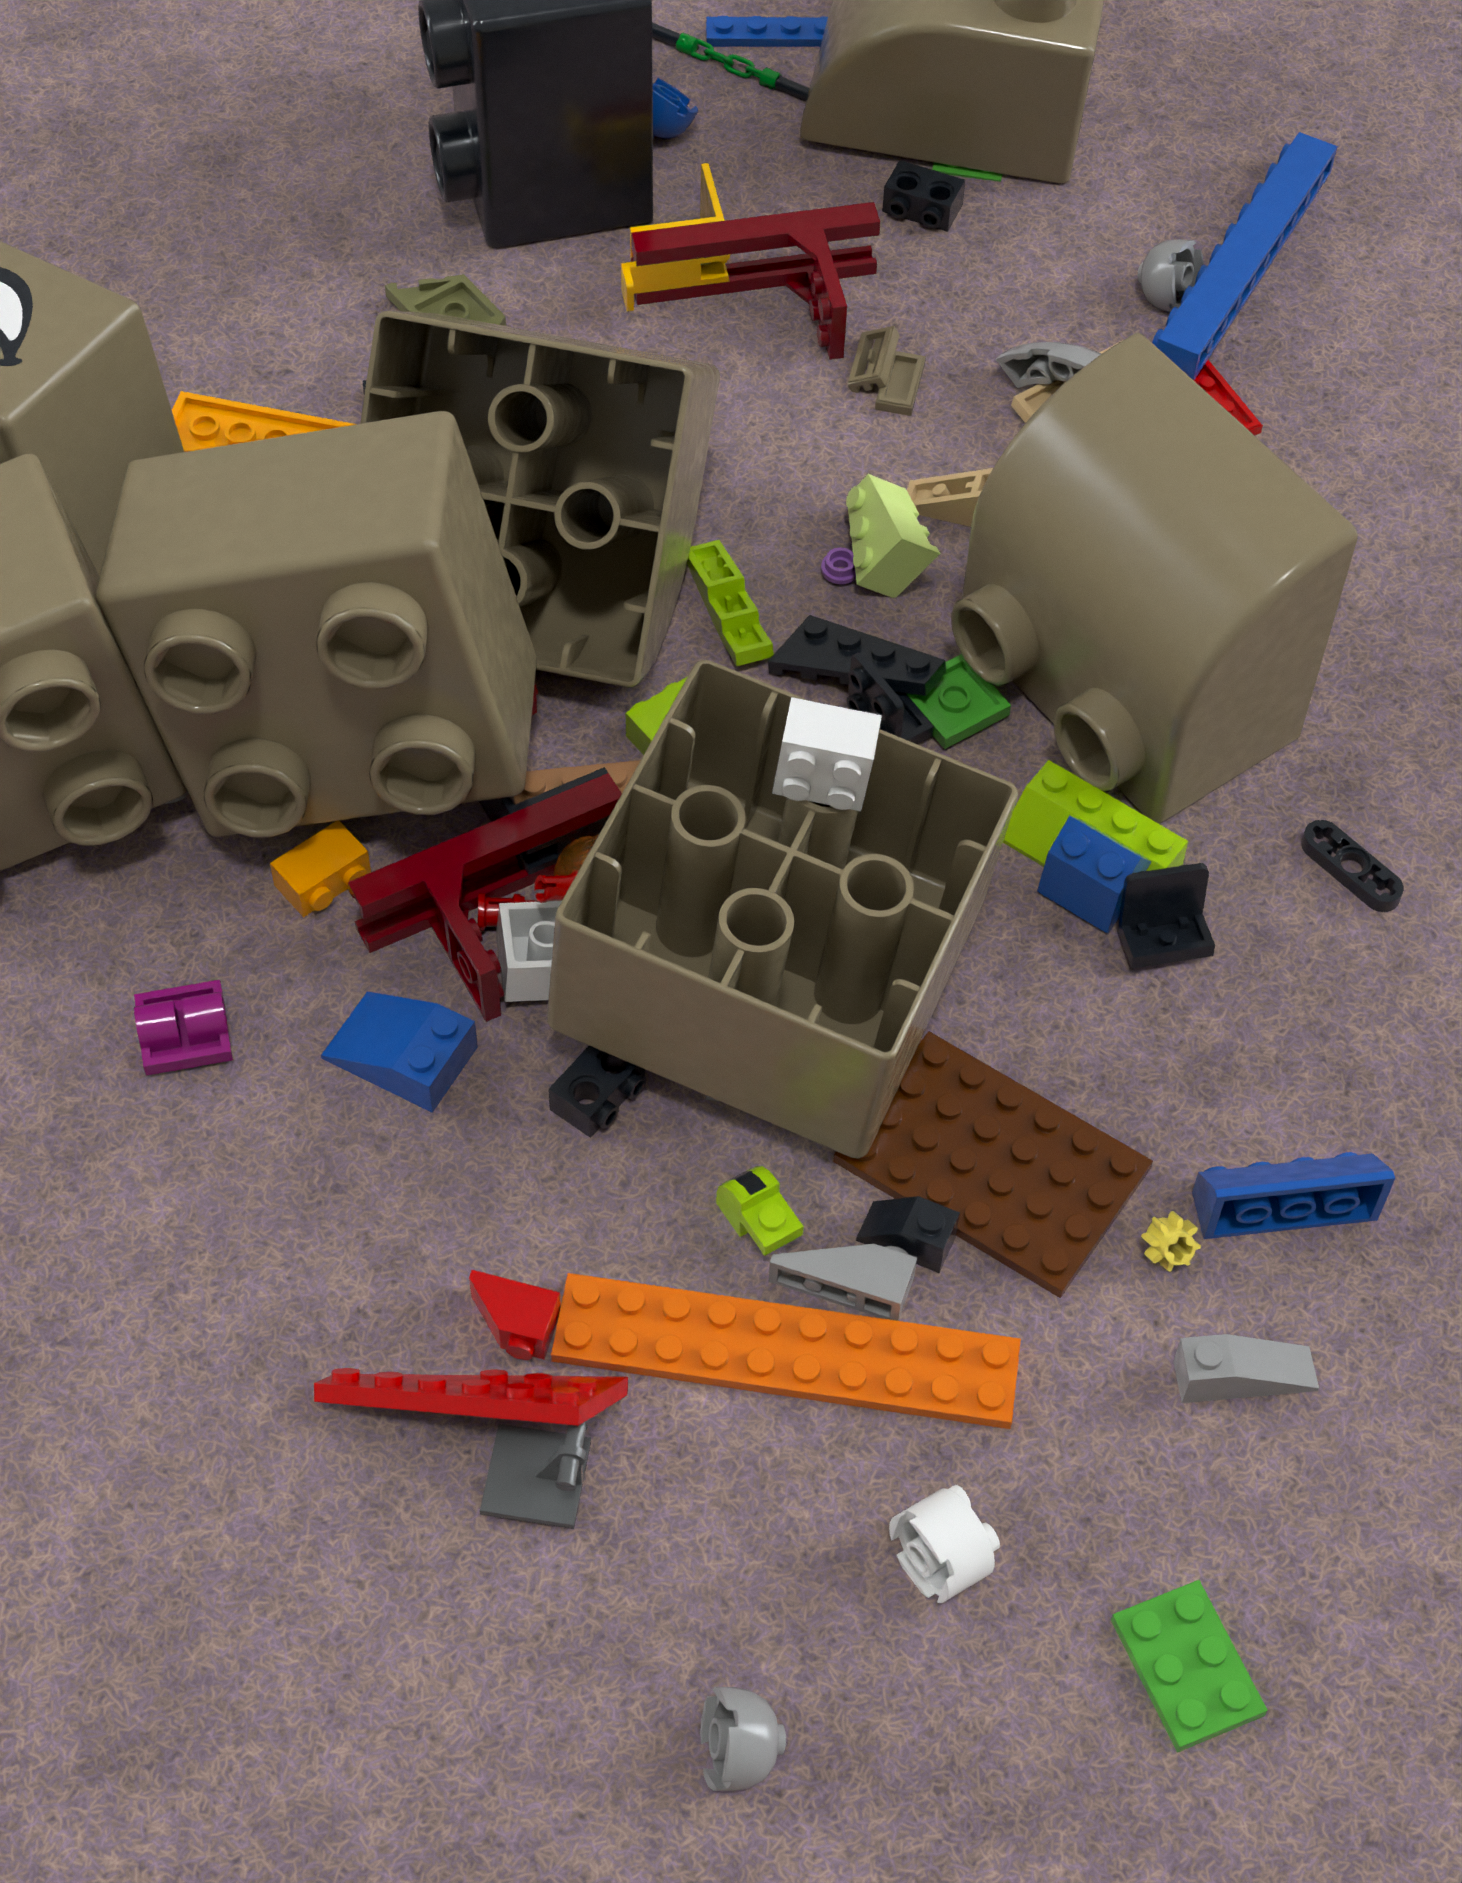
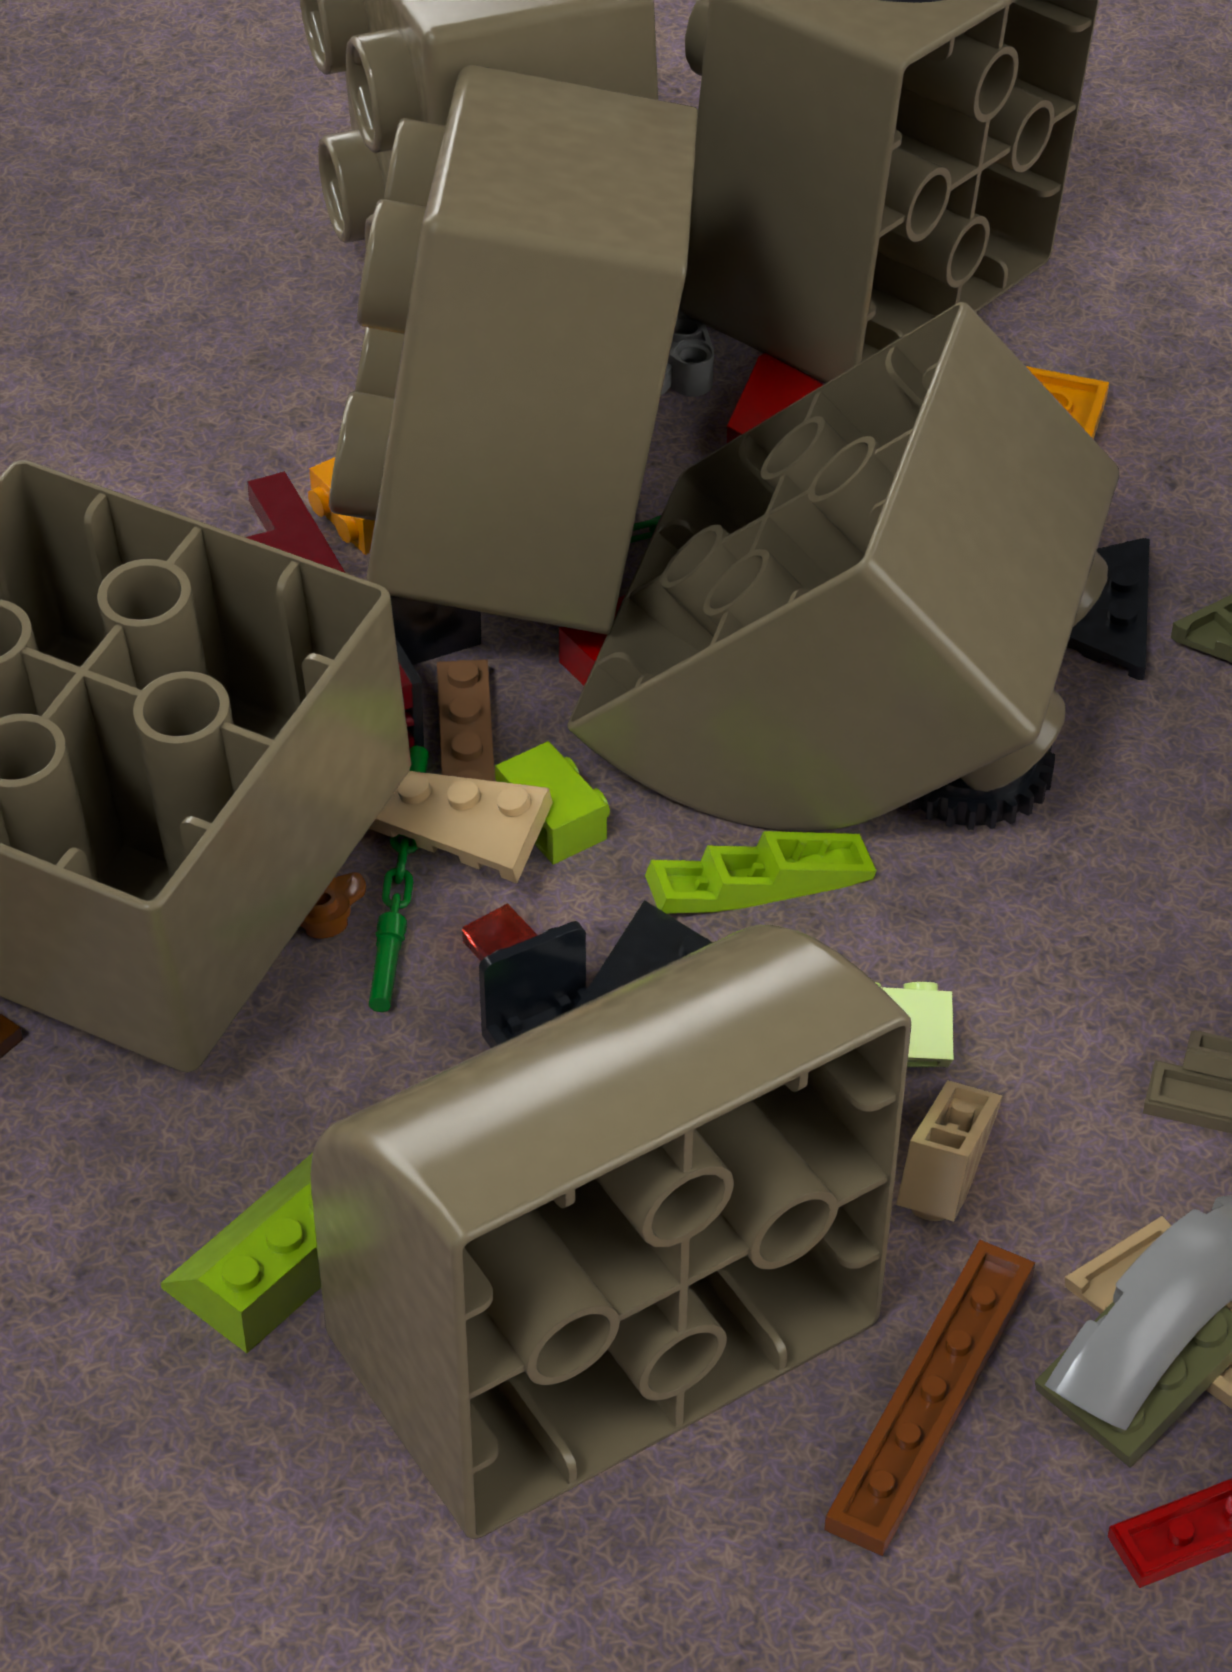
camera: 95 degrees right, 10 degrees down
(182, 1027) = (170, 403): magenta plate -> none
(826, 754) = (175, 660): white brick -> none
(1088, 873) = (217, 1197): blue slope -> none
(1164, 916) = (122, 1291): black bracket -> none
(1351, 850) = (211, 1541): black beam -> none

